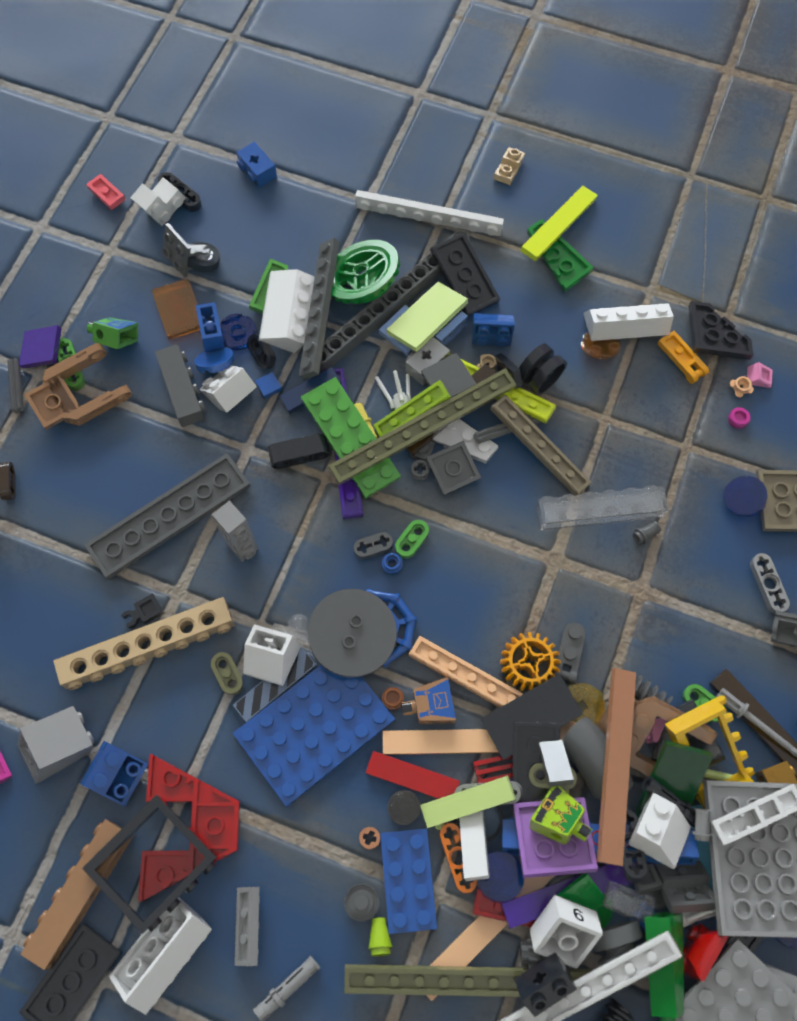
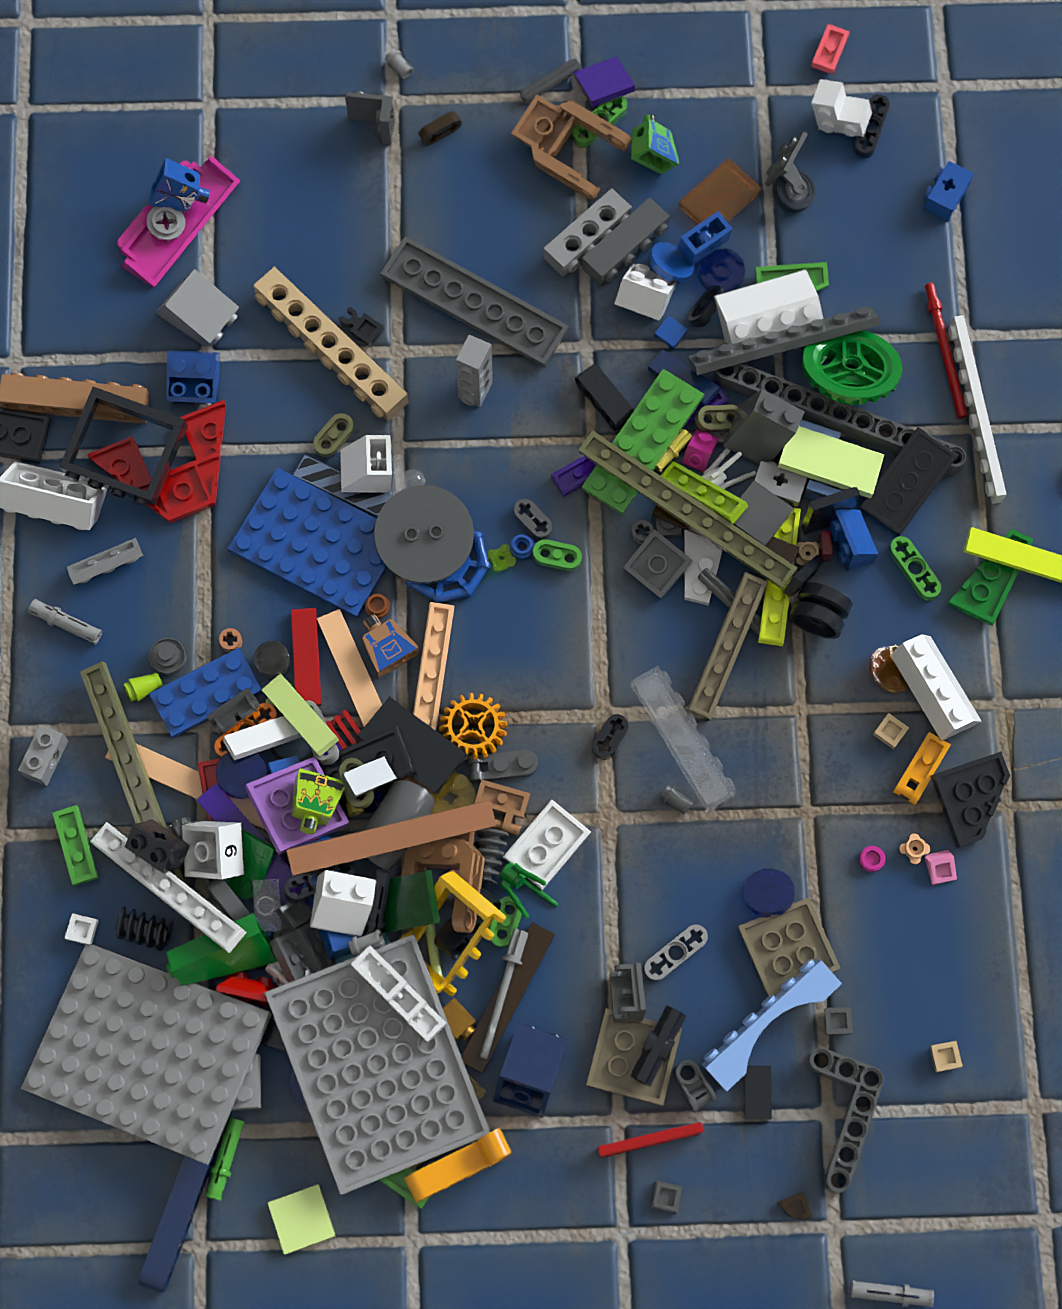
camera: 65 degrees right, 5 degrees up
(162, 436) = (565, 261): none -> light grey brick
(339, 209) = (935, 307): none -> red bar
(355, 378) = (716, 416): none -> olive plate
(374, 402) = (700, 450): none -> dark pink bracket
(381, 347) = (762, 427): none -> dark grey slope
(390, 586) = (499, 565): none -> clear neon green plate
(440, 871) = (233, 710): none -> dark grey hinge
(469, 328) = (822, 510): none -> black tile
(488, 347) = (825, 544): none -> dark red tile
(524, 307) = (899, 557): none -> bright green beam
(580, 557) = (615, 739): none -> black beam
(600, 663) = (505, 801): none -> medium nougat plate
(647, 365) = (891, 731): none -> tan plate
(648, 645) = (547, 843): none -> white tile
(669, 680) = (514, 876): none -> green plant

